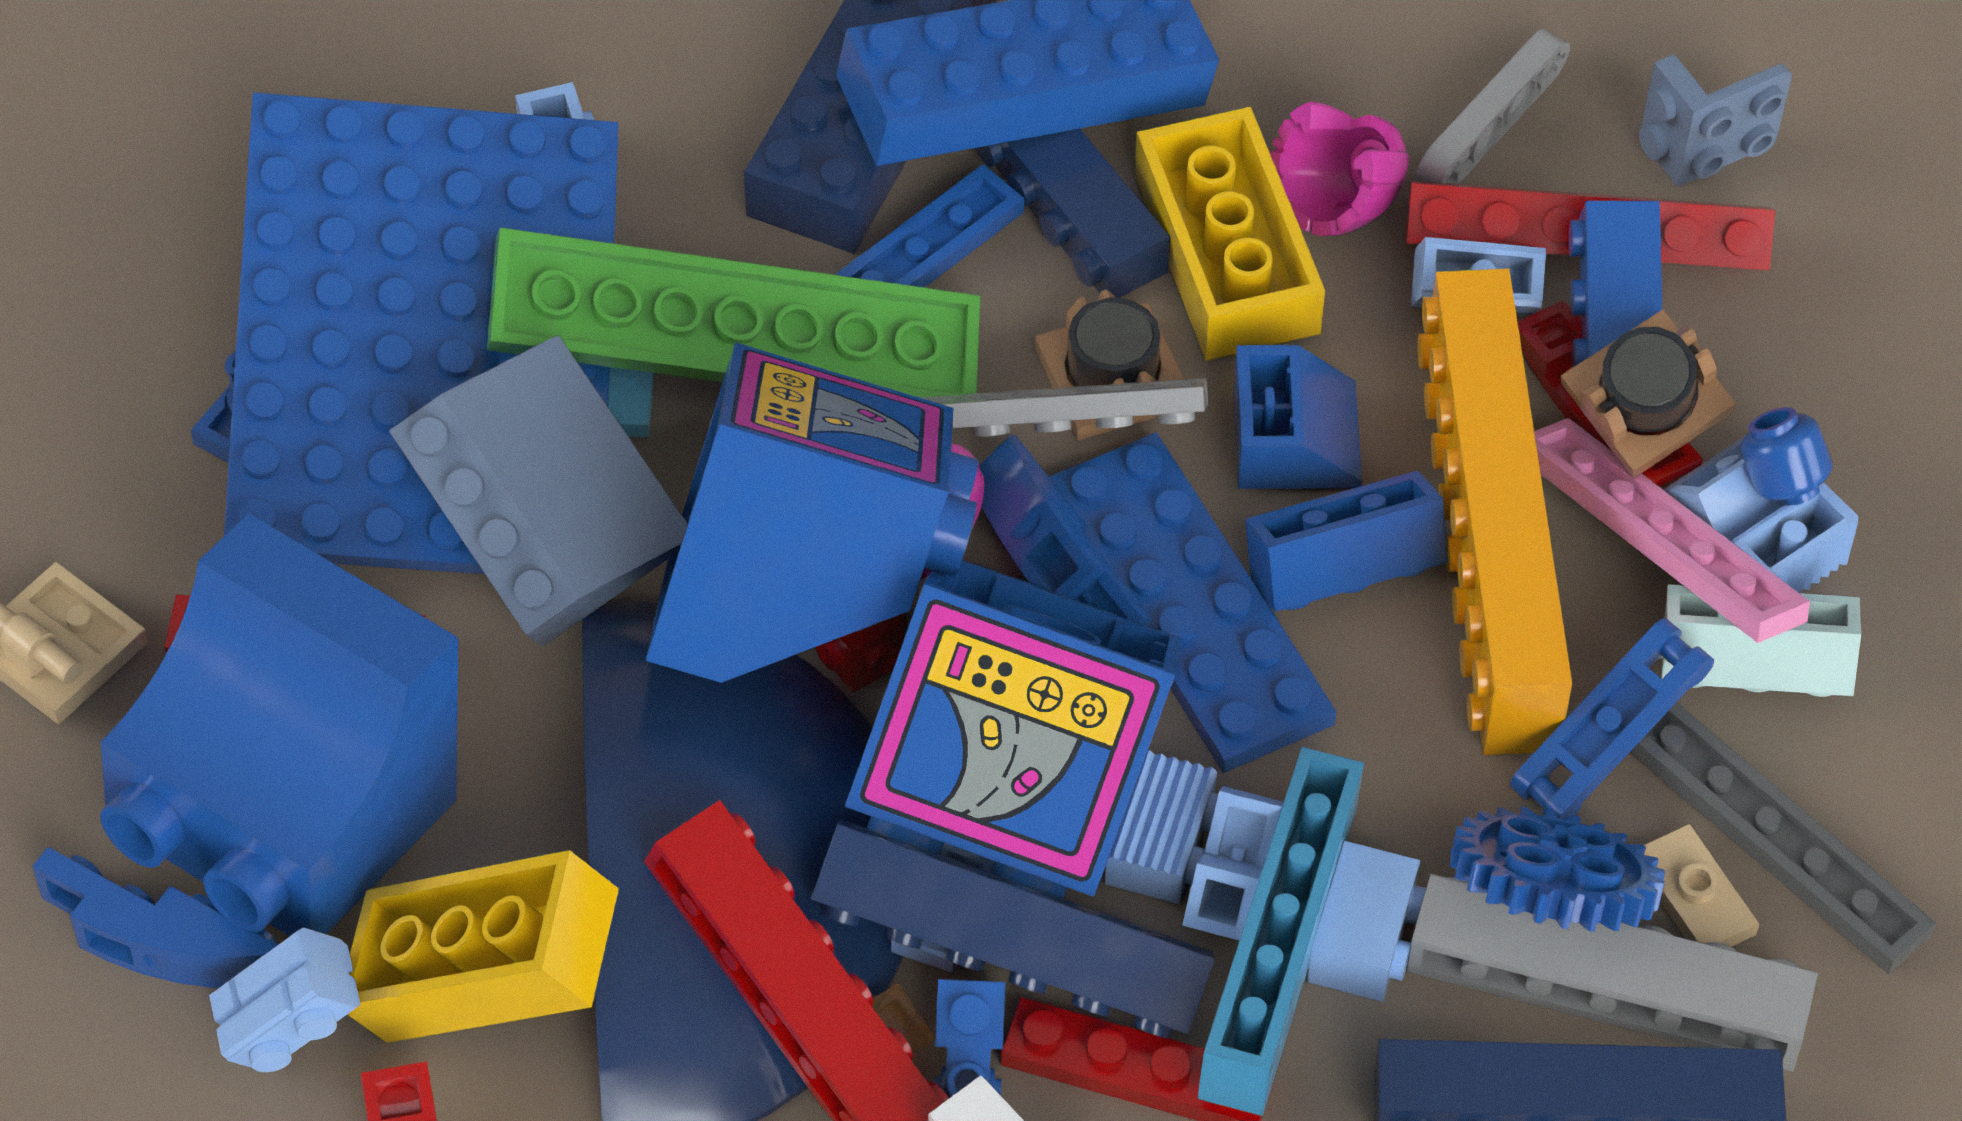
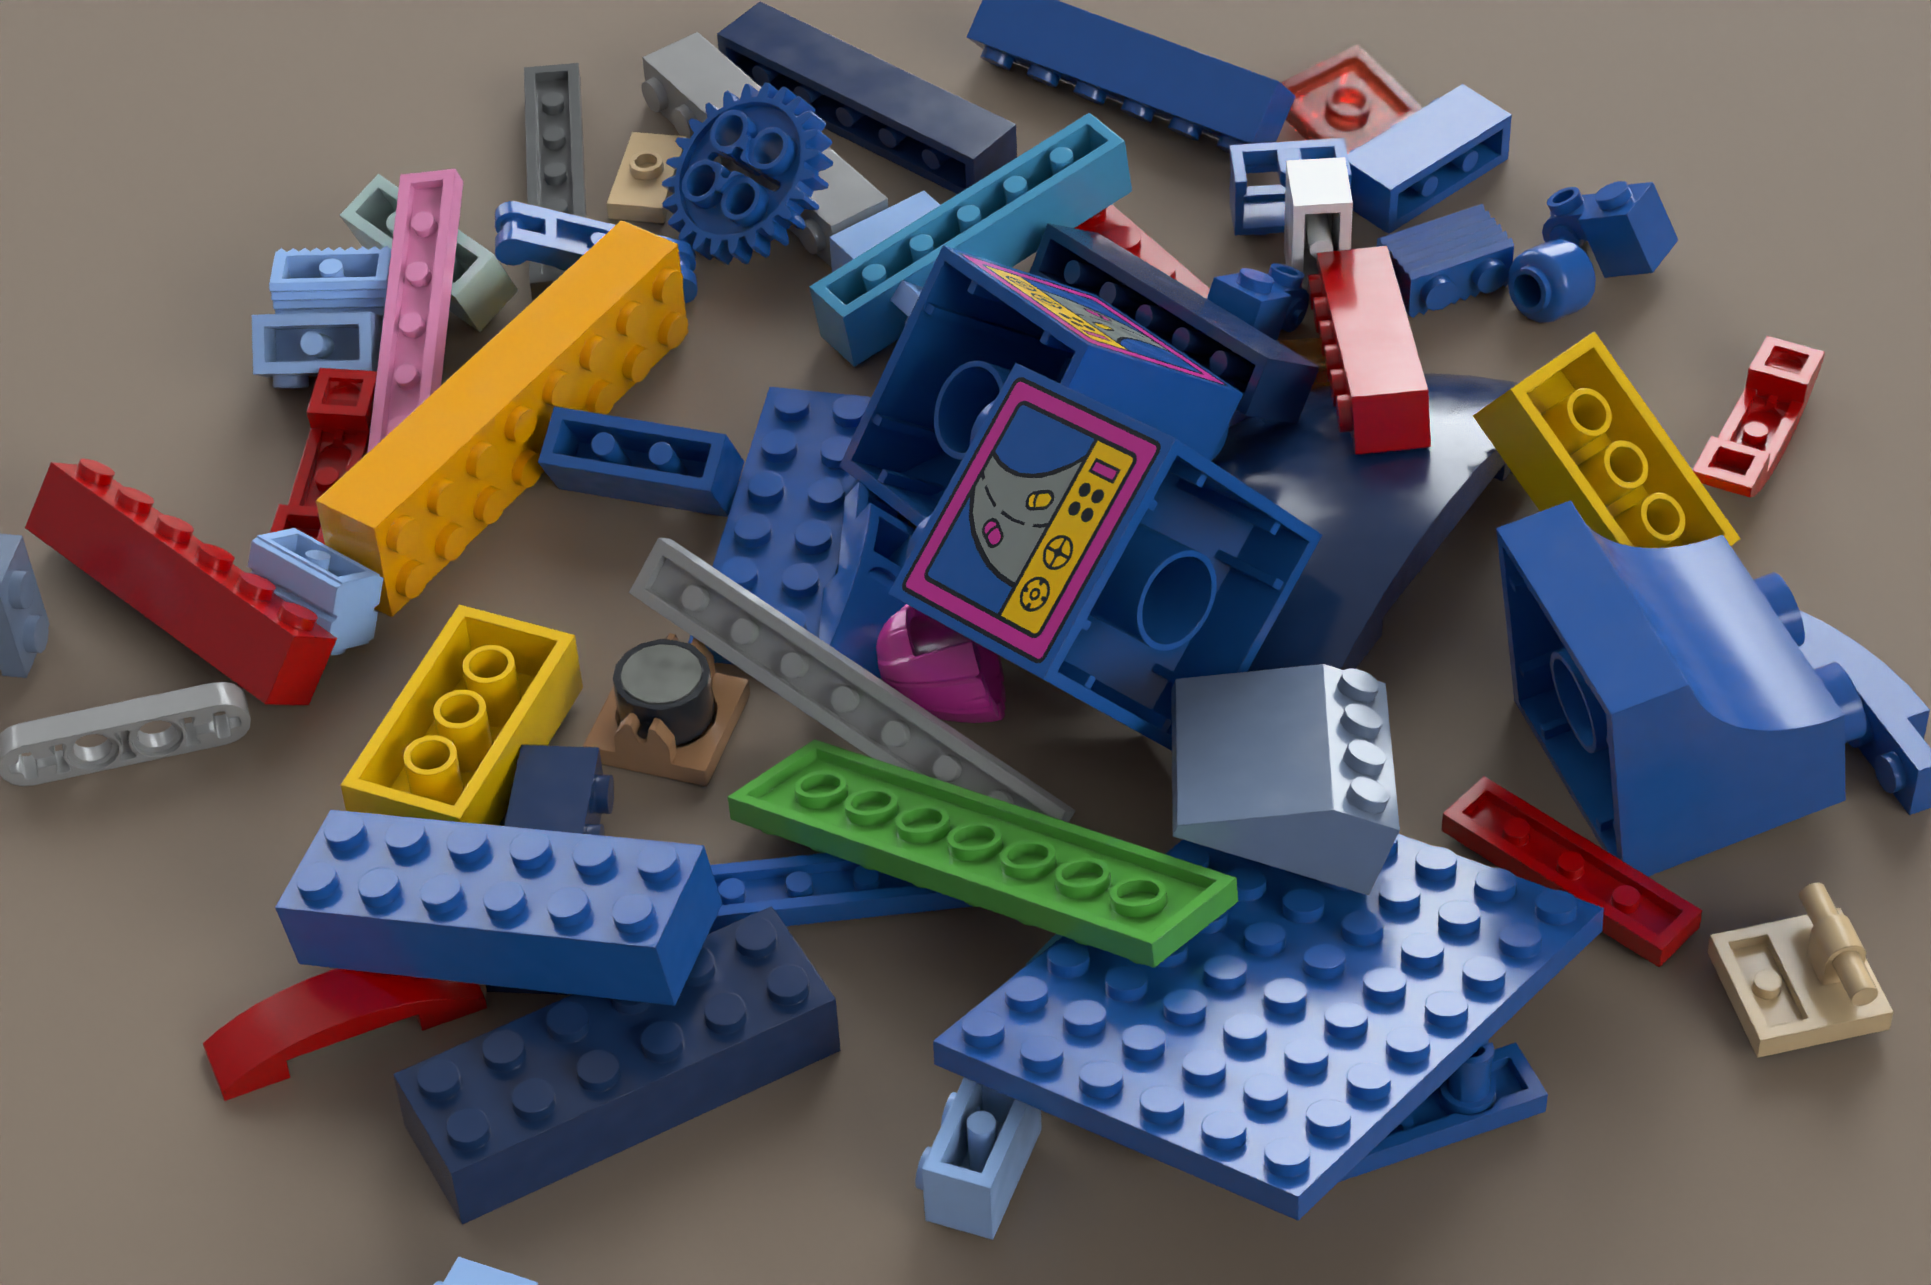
camera: 140 degrees left, 10 degrees down
(285, 1000) = (1780, 540): light blue brick -> none
(1294, 420) = (582, 576): blue slope -> none
(1338, 167) = (312, 718): dark pink hair -> none
(1617, 271) = (242, 473): blue brick -> none
(1649, 387) = (326, 375): piece -> none
(1786, 456) = (269, 268): blue head -> none

